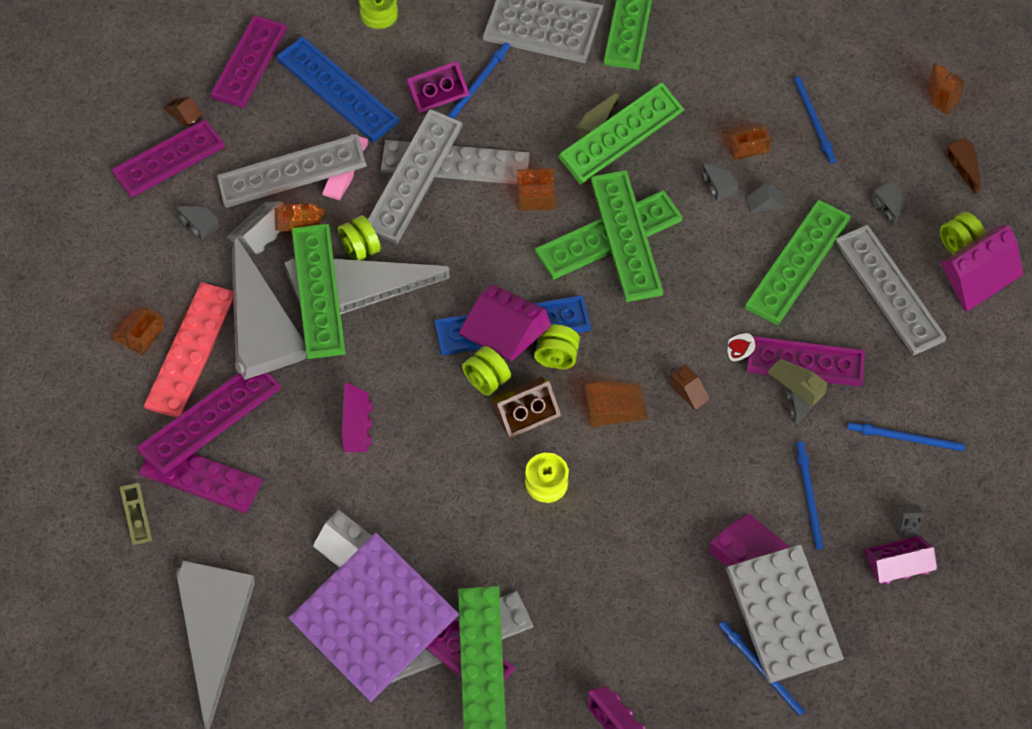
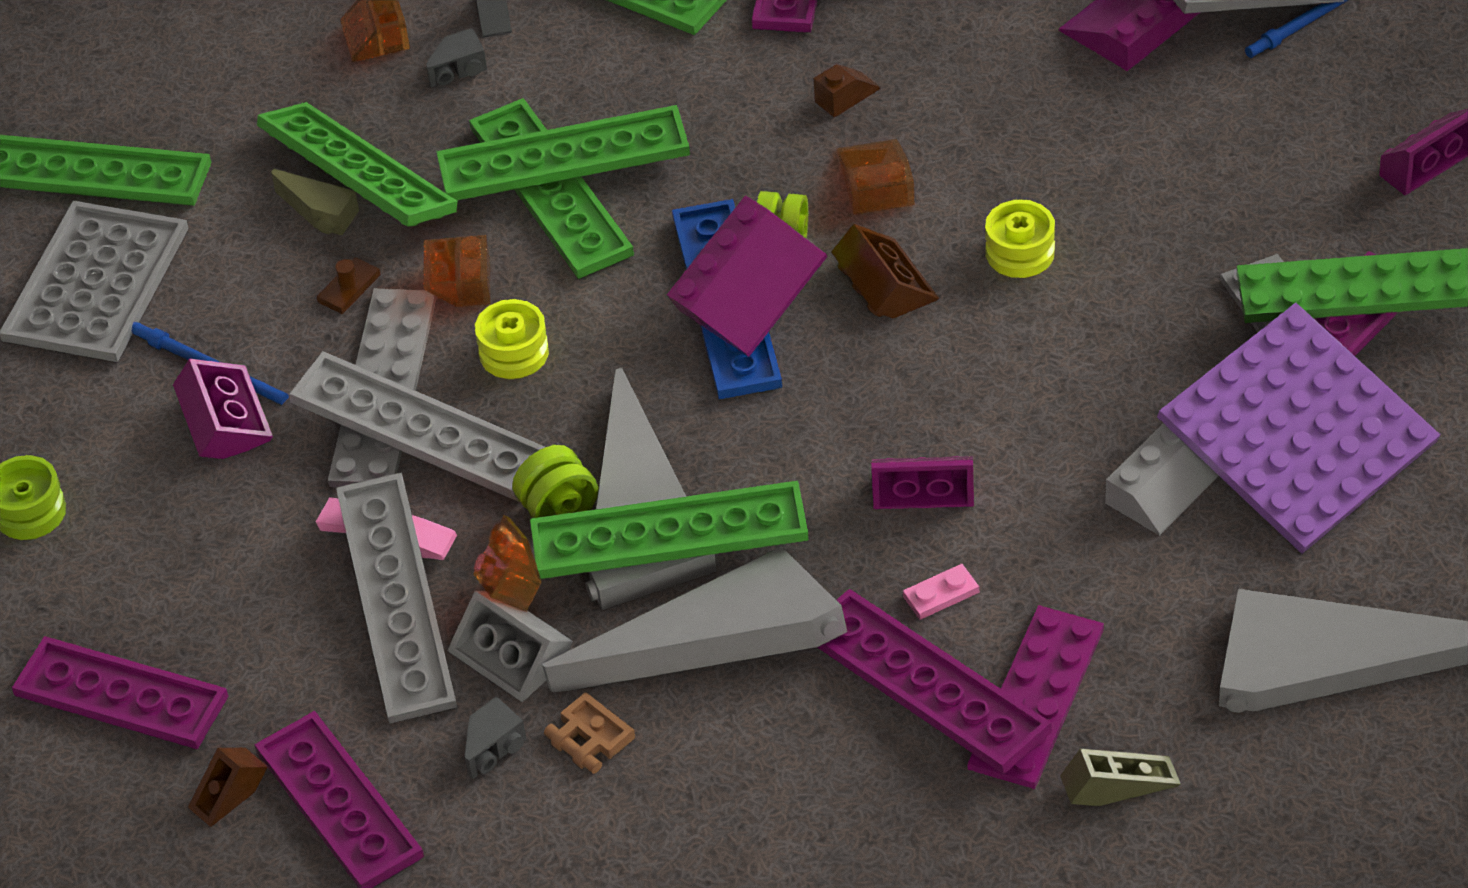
camera: 85 degrees left, 10 degrees down
(139, 330) = (734, 804): clear orange slope -> none
(190, 350) = (772, 732): coral plate -> none
(201, 269) = (596, 725): none -> medium nougat plate
(279, 432) = (941, 591): none -> bright pink plate
(338, 89) = (202, 556): blue plate -> none
(479, 217) = (511, 339): none -> neon yellow wheel
(486, 370) = (827, 310): lime wheel -> none
(535, 141) = (350, 283): none -> reddish brown tile
(740, 346) = (768, 34): sticker -> none

